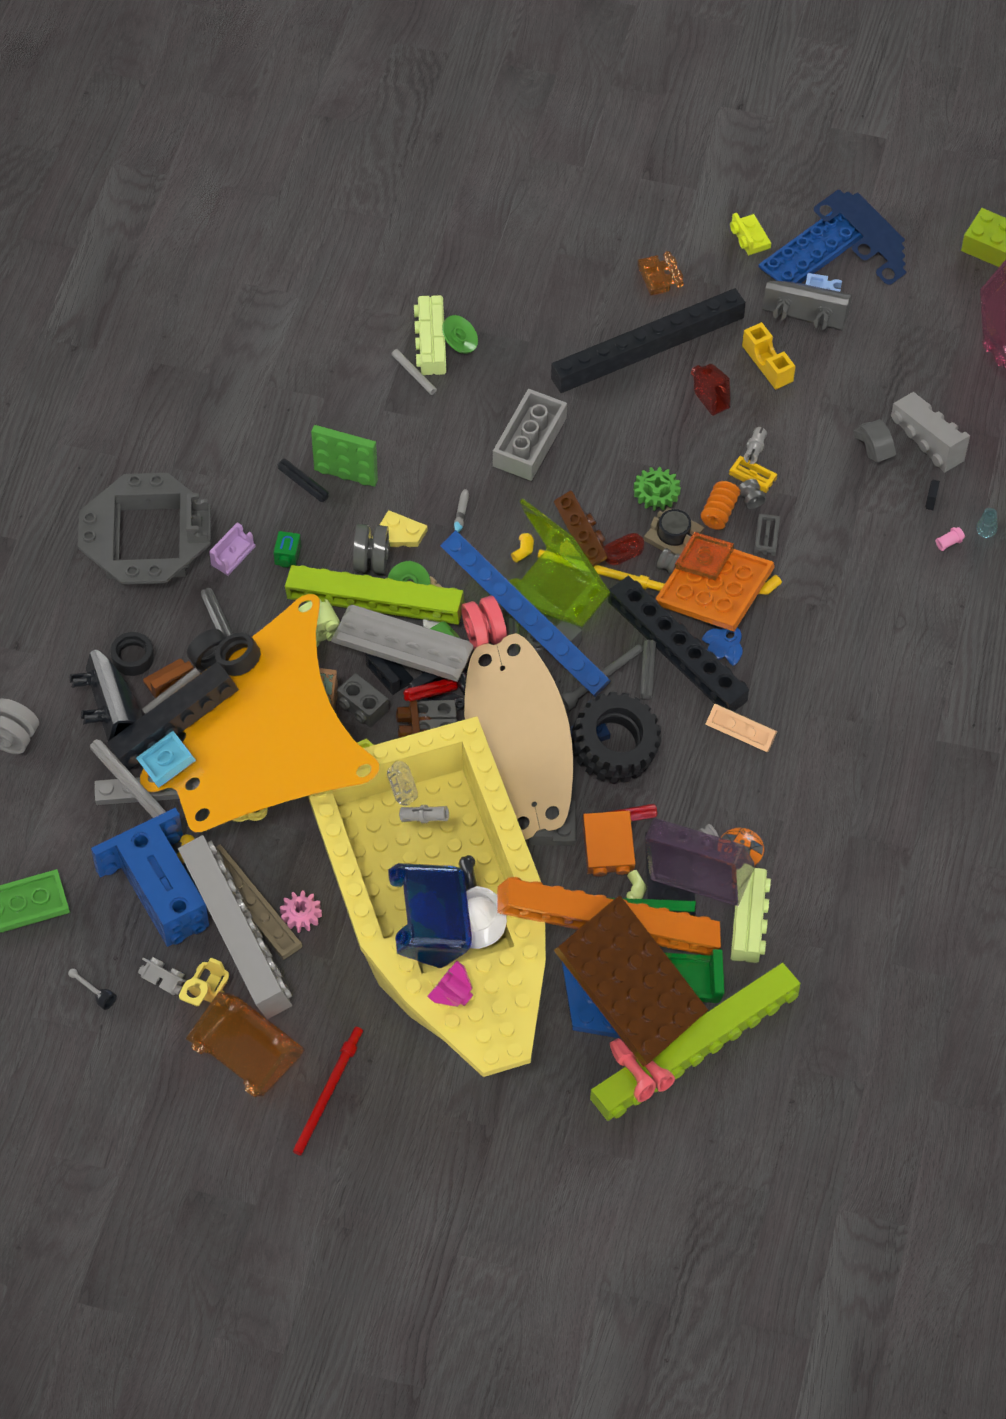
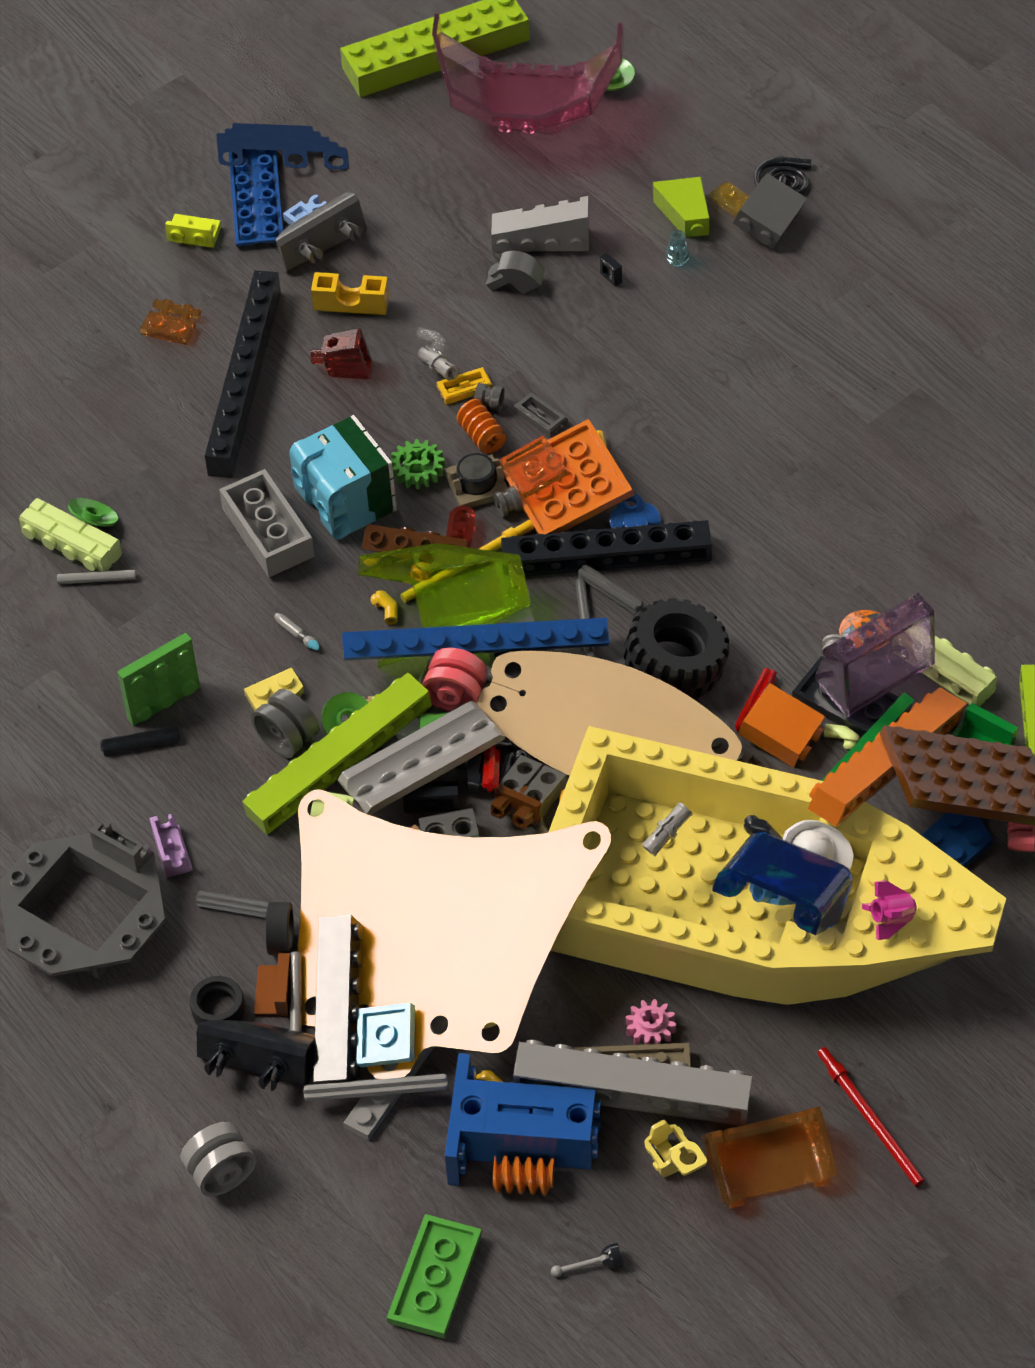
camera: 50 degrees left, 5 degrees down
(125, 907) = (523, 1175): none -> orange piece
(154, 971) = (616, 1192): light grey hinge -> none
(243, 663) = (305, 886): black tyre -> none
(287, 549) = (214, 798): green brick -> none
(402, 783) = (620, 829): clear beam -> none
(596, 452) = (344, 477): none -> medium azure piece
(741, 727) = (738, 553): light nougat plate -> none
(778, 429) = (432, 336): none -> clear arm
(952, 537) = (667, 286): bright pink pin -> none

